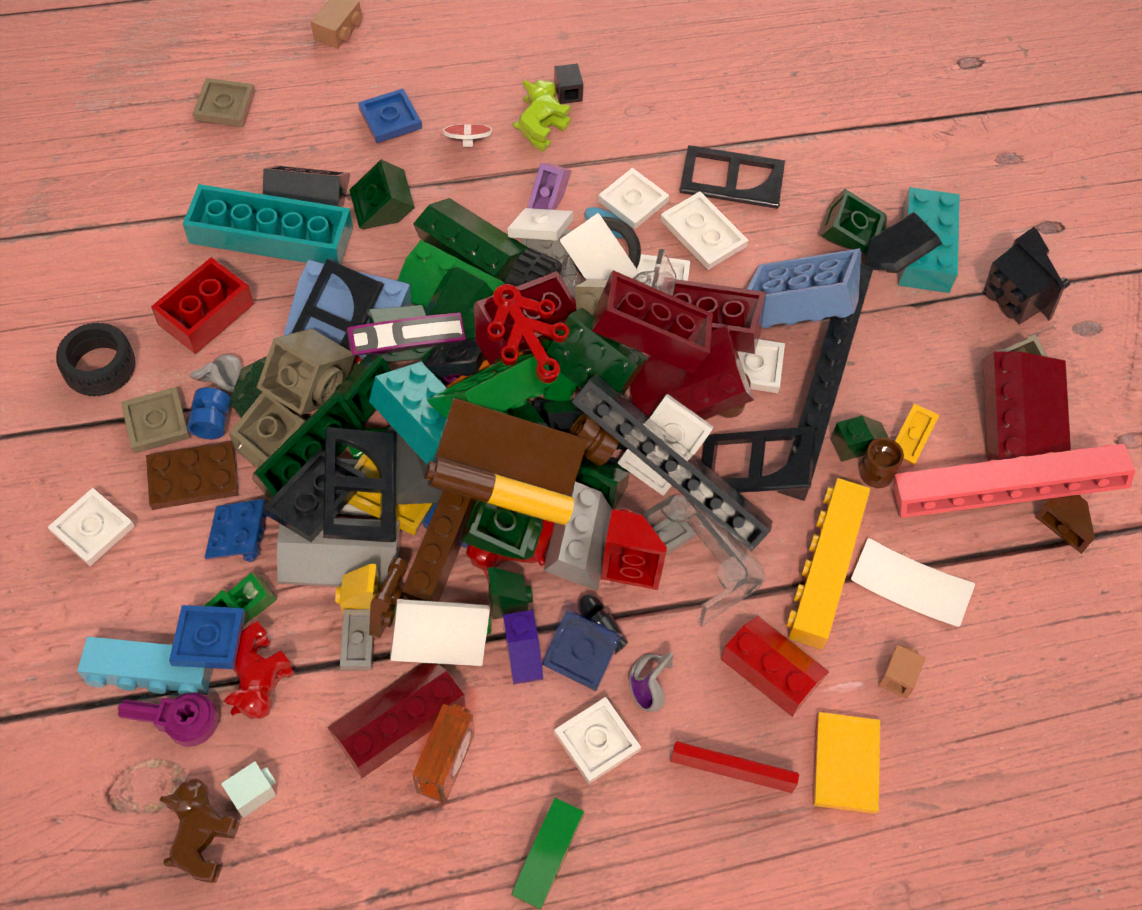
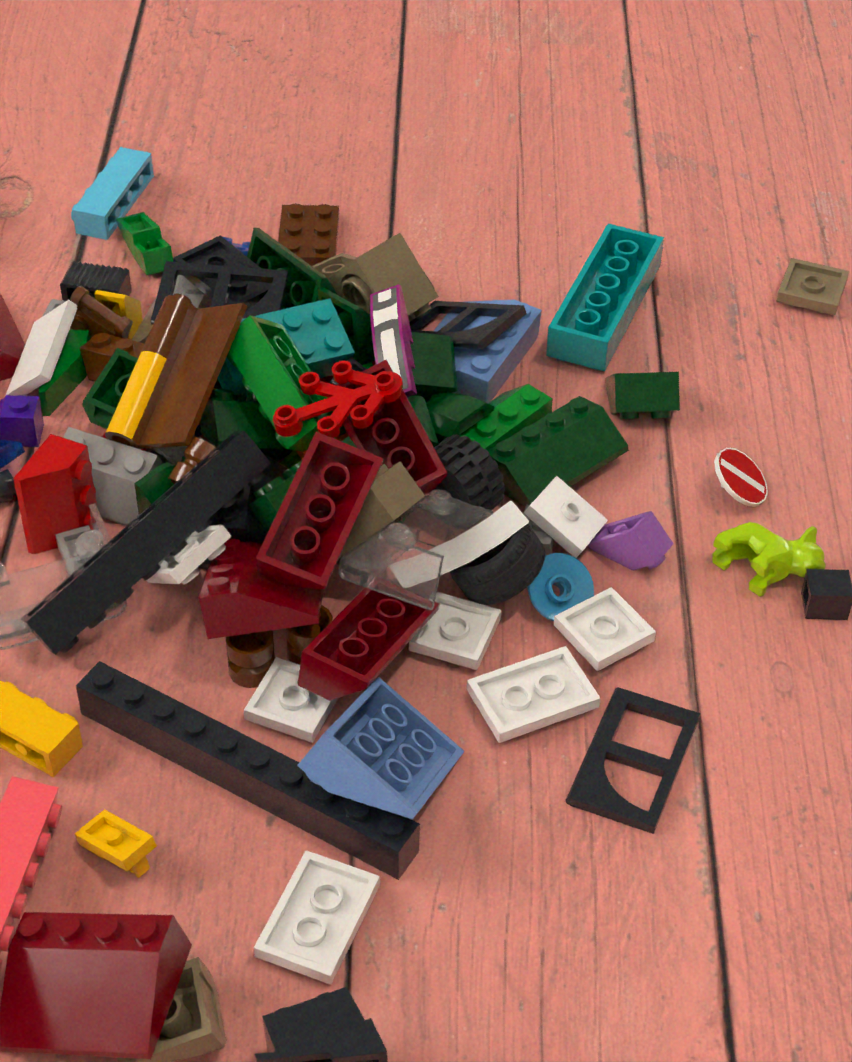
camera: 105 degrees right, 15 degrees down
(89, 338) = (465, 193): black tyre -> none
(91, 527) = (272, 172): white plate -> none
(155, 420) = (378, 213): dark tan plate -> none
(187, 719) = (53, 210): magenta piece -> none
(202, 305) = (505, 243): red brick -> none
(207, 637) = (109, 208): blue plate -> none
(208, 413) = (362, 237): blue wheel -> none
(222, 371) = (430, 261): light grey piece -> none
(256, 674) = (72, 246): red animal -> none
(306, 184) = (671, 333): black slope -> none
(309, 634) = (95, 278): none -> black brick
(390, 115) = (781, 417): blue plate -> none
(507, 592) = (65, 402): dark green slope -> none
(794, 475) = (90, 655): black window -> none
(852, 221) = (498, 876): dark green slope -> none
(854, 436) = (138, 782): dark green slope -> none
(881, 462) = (85, 785): reddish brown wheel -> none
(901, 245) = (429, 894): black tile -> none
(917, 315) = (317, 917): none -> white plate
(940, 266) = (452, 969): teal brick -> none

